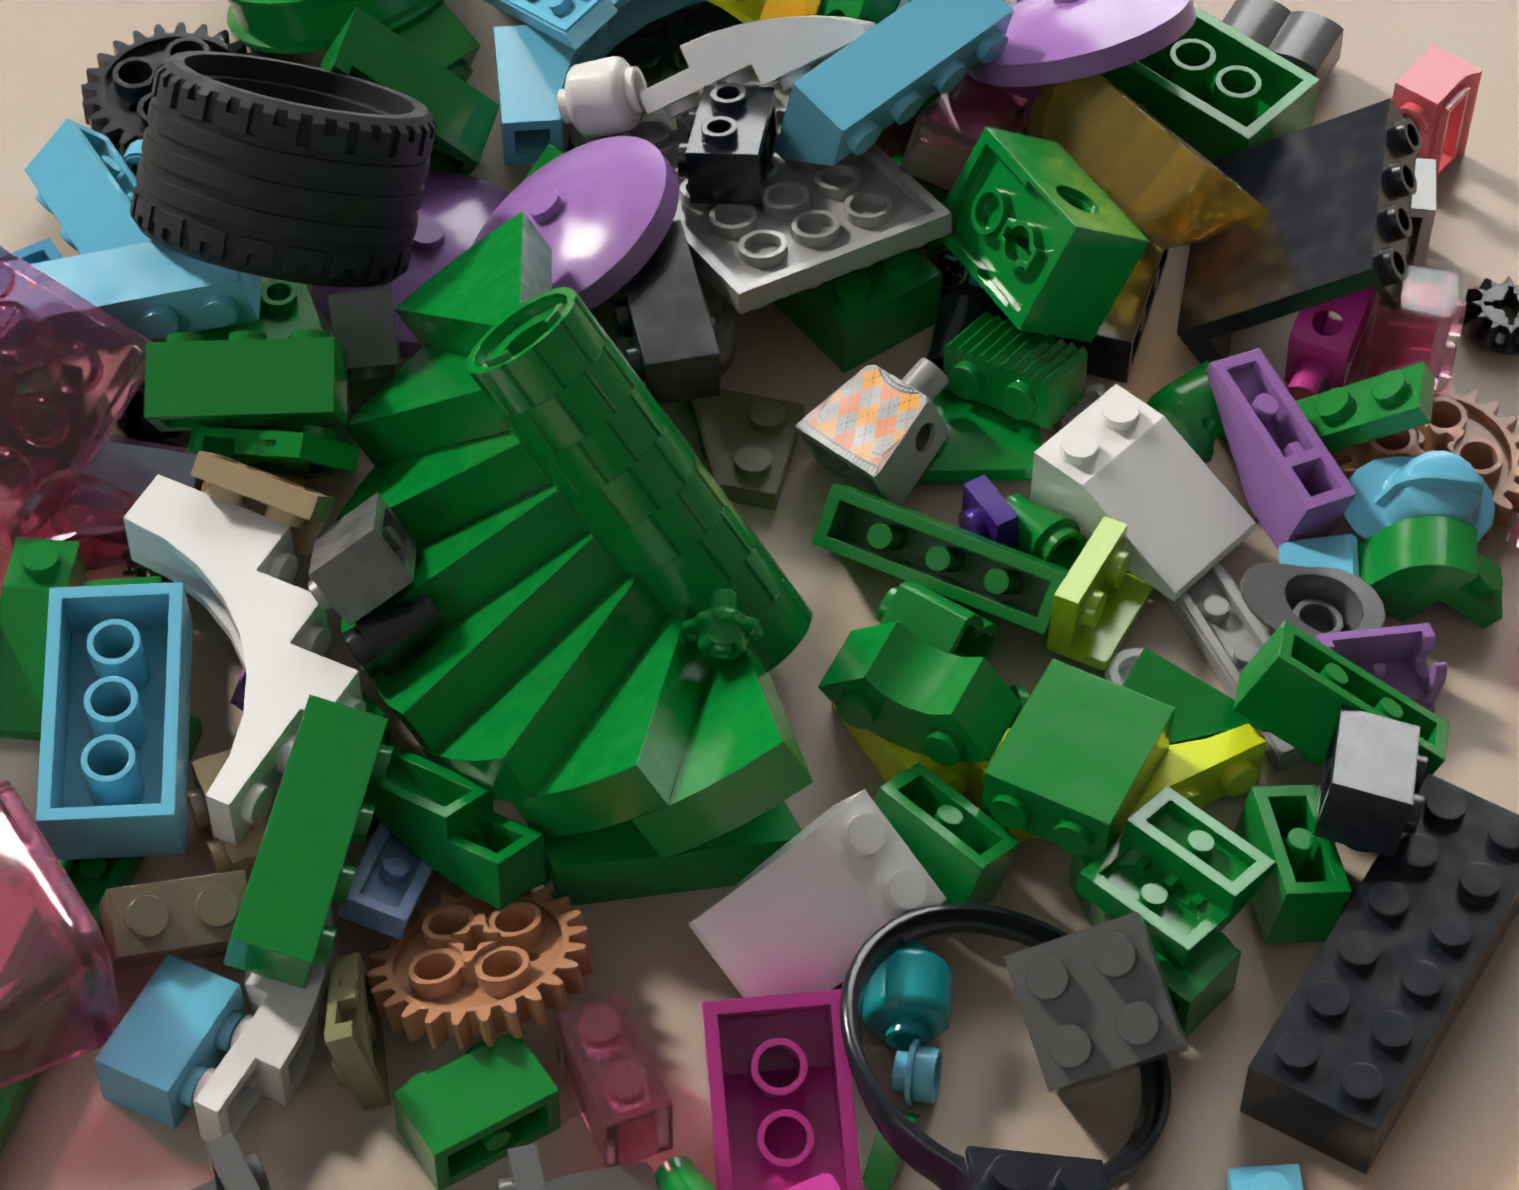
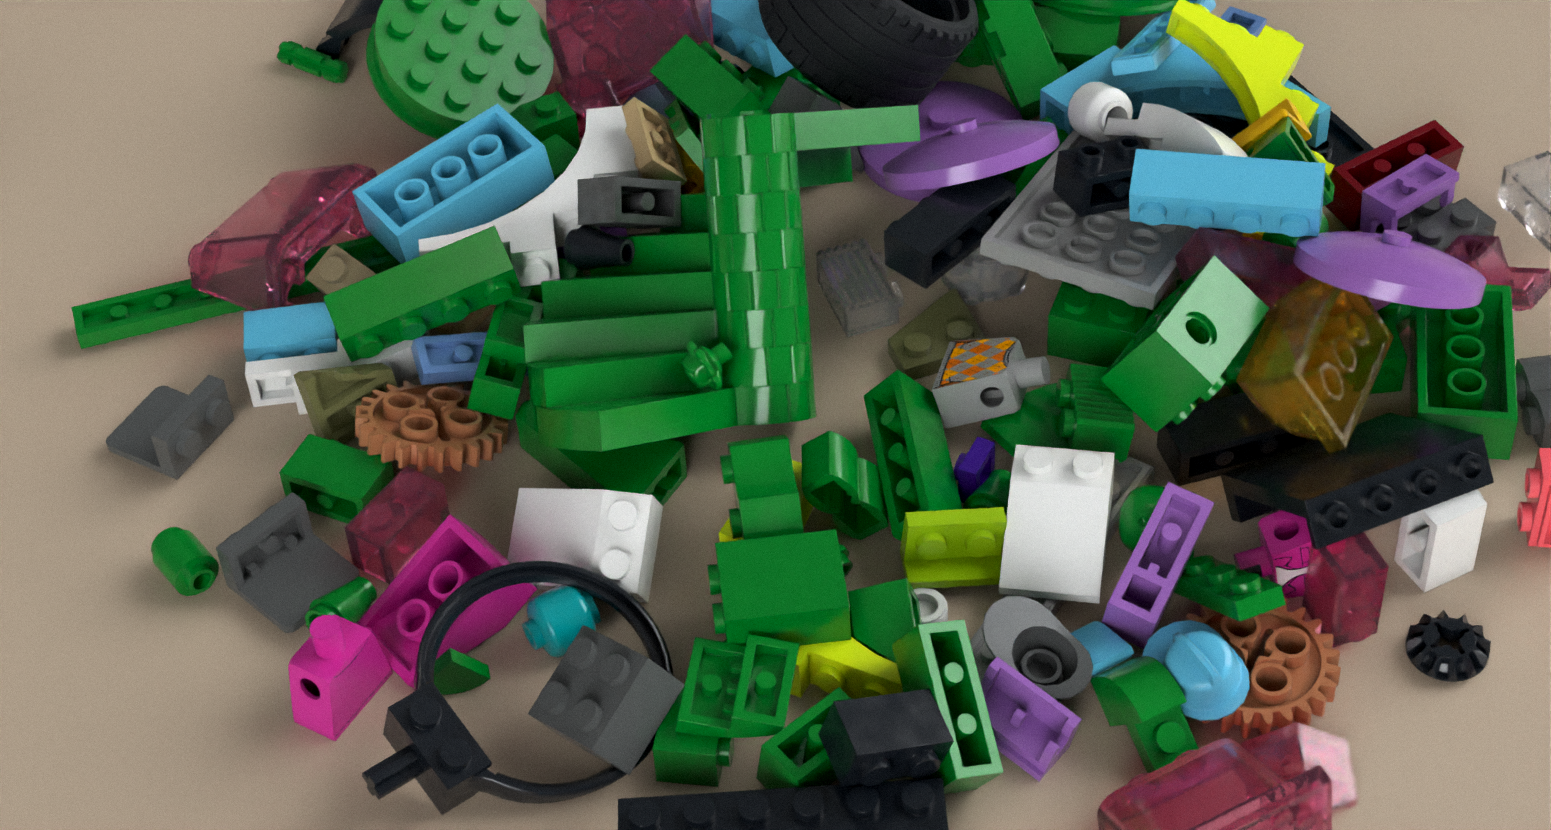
camera: 60 degrees right, 5 degrees down
(917, 1073) = (517, 660): medium azure plate -> none
(948, 835) = (681, 571): green brick -> none

